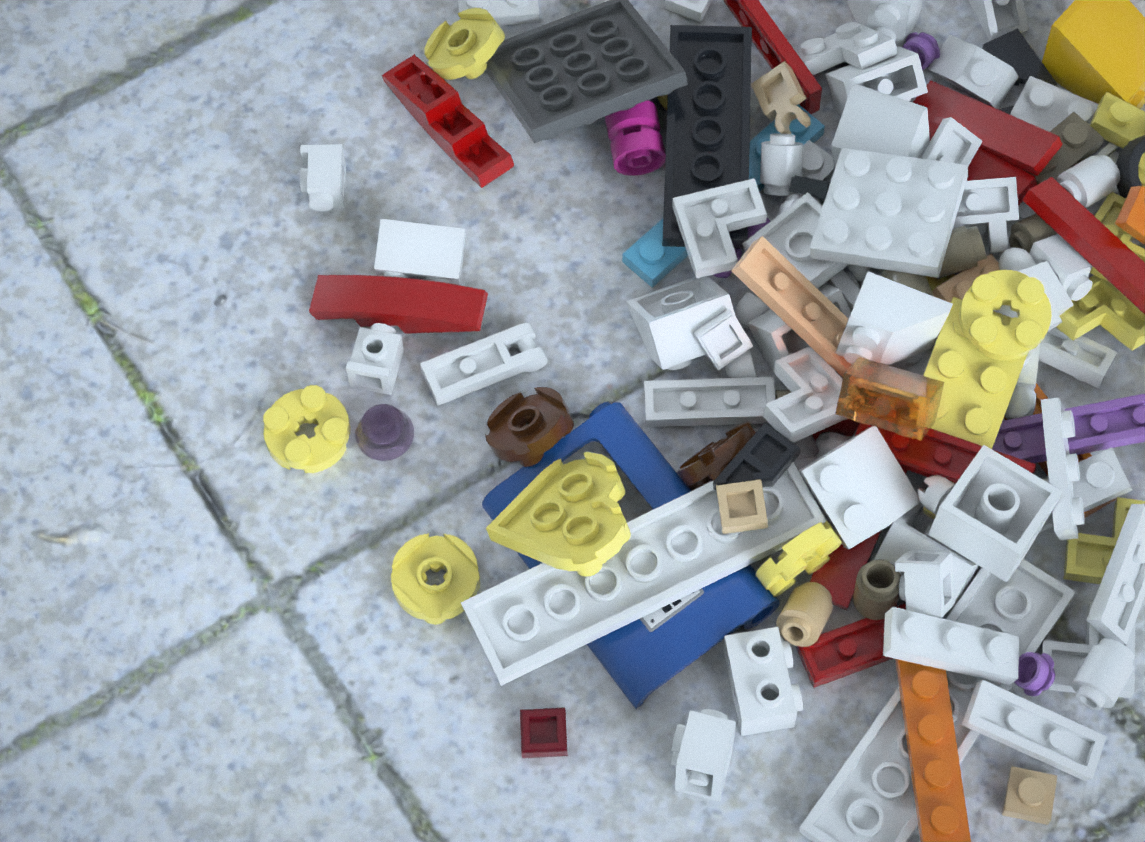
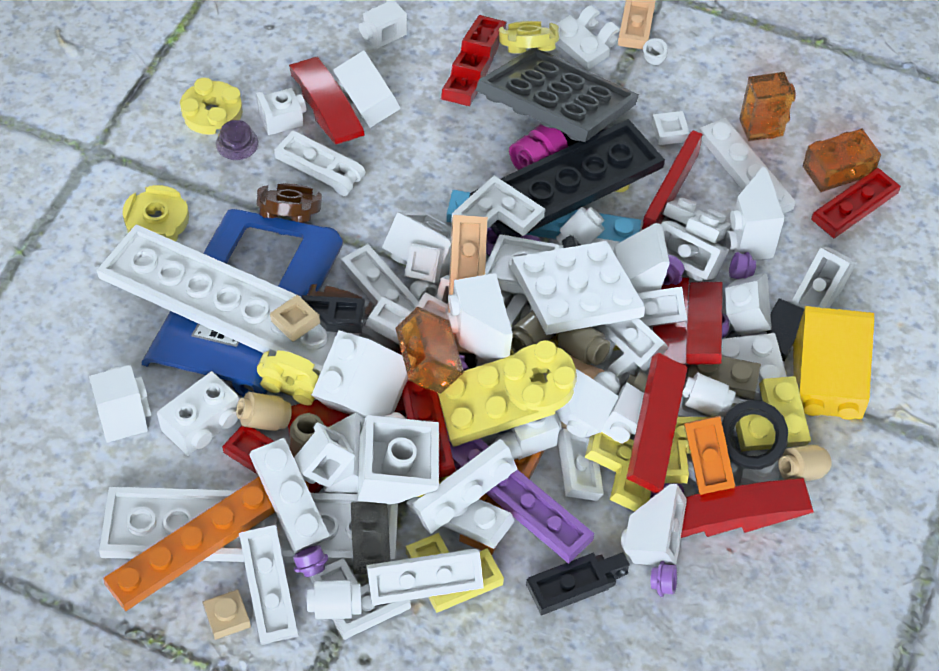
camera: 50 degrees right, 10 degrees down
(543, 732) = (90, 324): dark red tile -> none
(567, 516) = (232, 243): light yellow plate -> none
(778, 96) = (628, 202): tan plate -> none
(1042, 600) = (369, 535): none -> clear smoke plate

